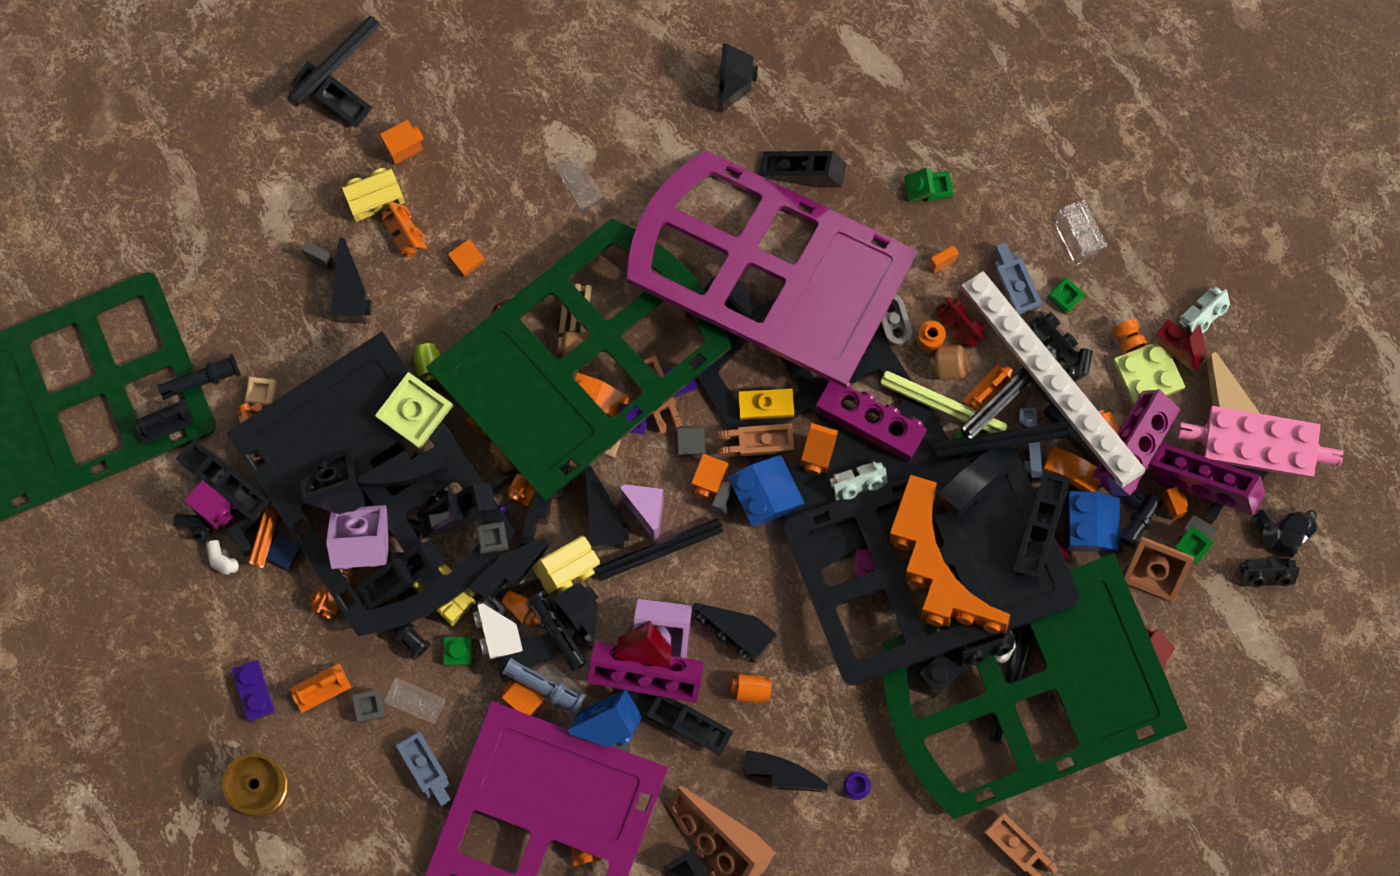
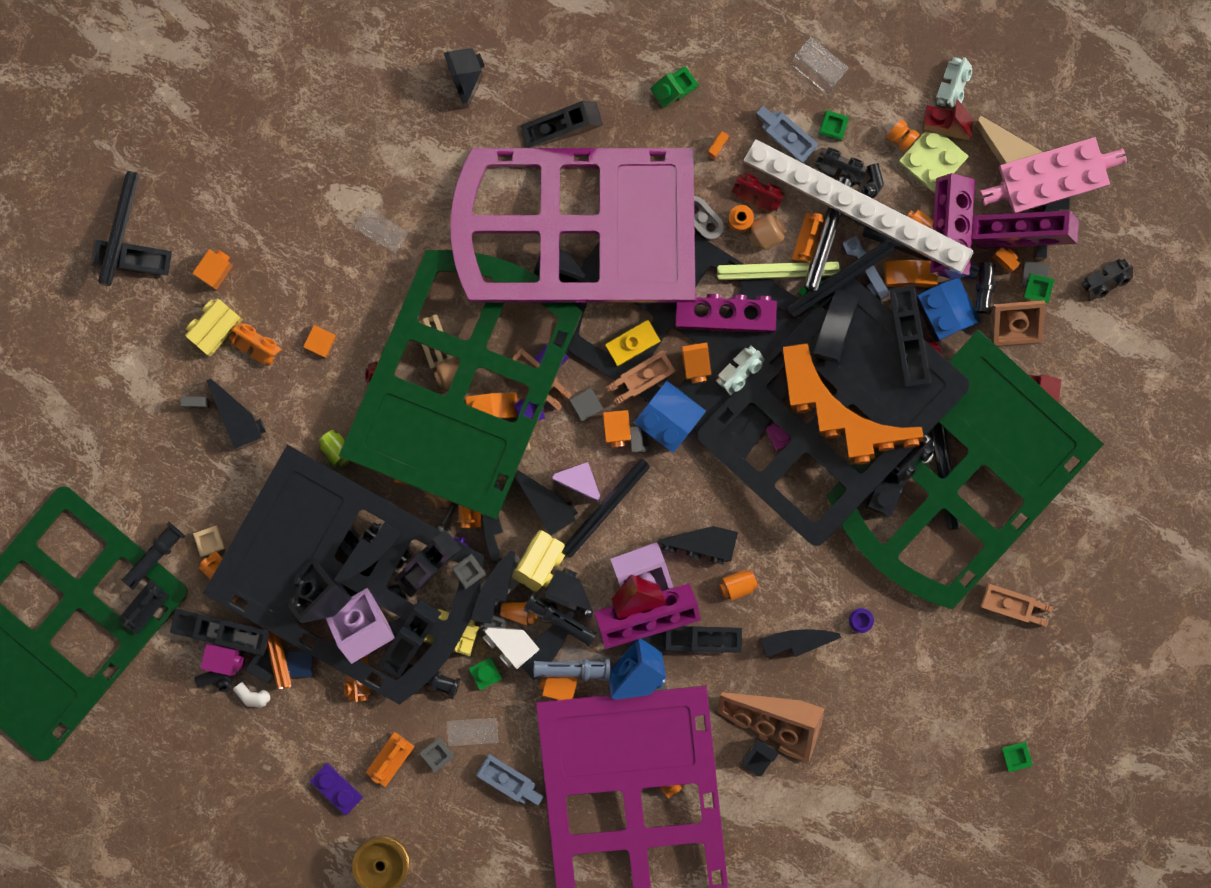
camera: 25 degrees left, 10 degrees up
(414, 410) = (349, 499): yellowish green plate -> none
(1288, 532) = (1109, 238): black animal -> none

